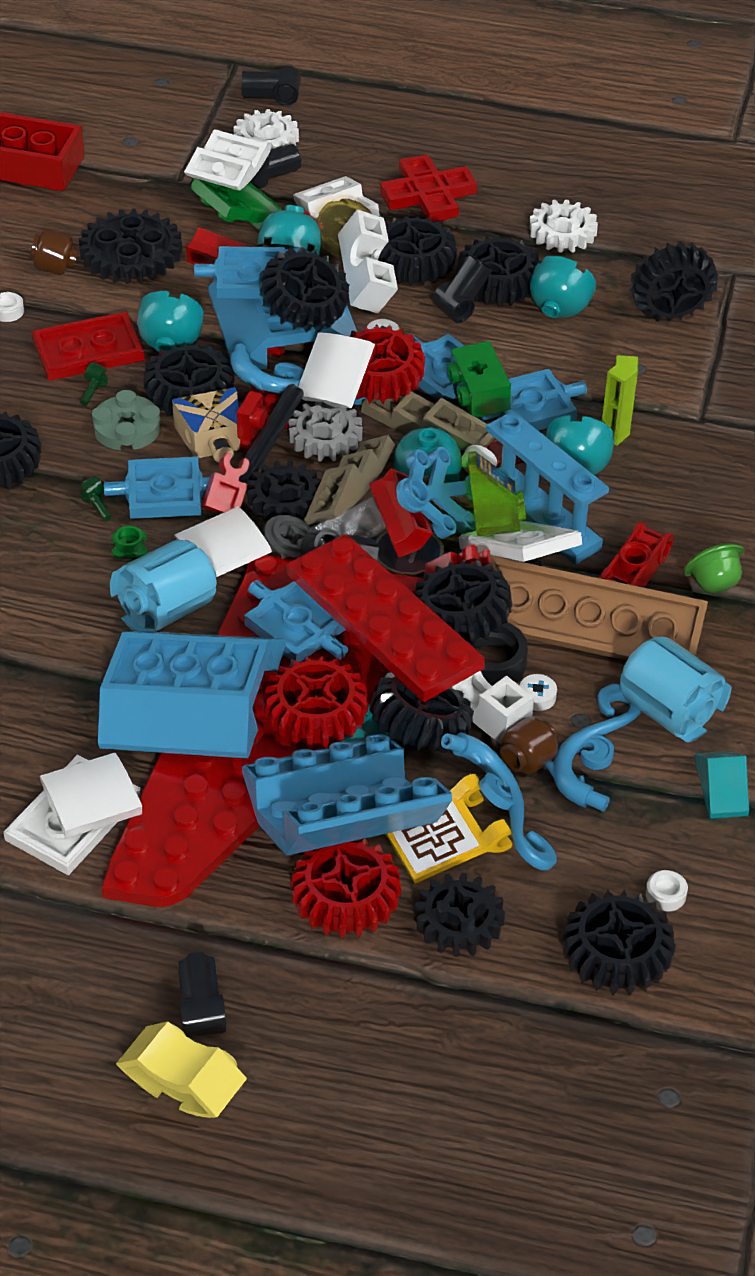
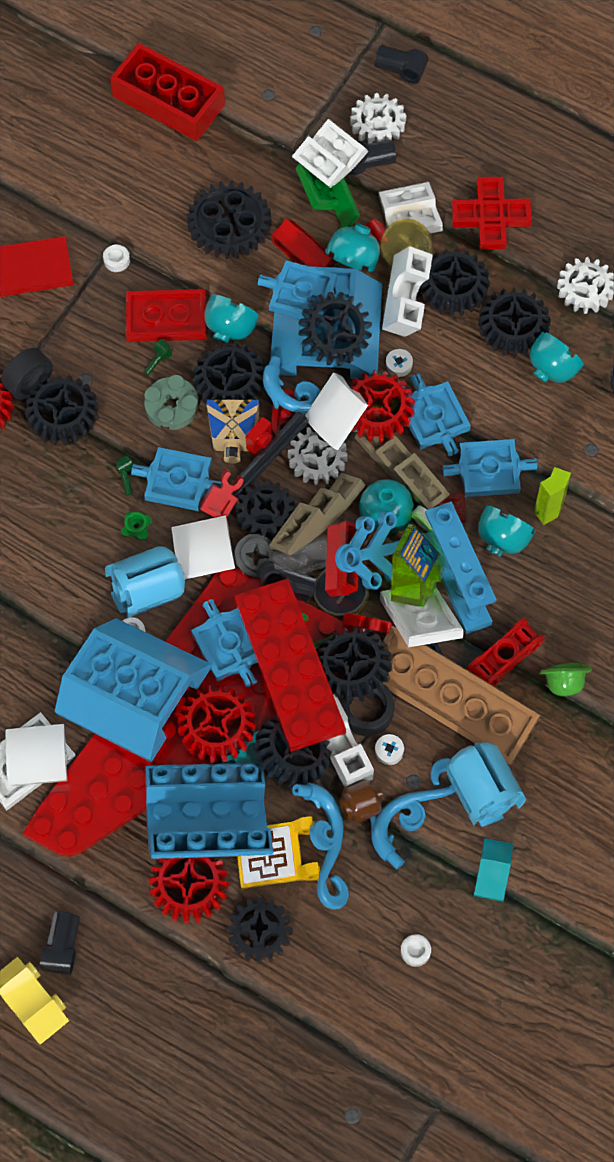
camera: 20 degrees right, 20 degrees up
(53, 252) = (166, 212): reddish brown head -> none
(457, 296) = (470, 341): black piece -> none
(479, 379) = (450, 459): green brick -> none
(608, 936) = (347, 984): black gear -> none

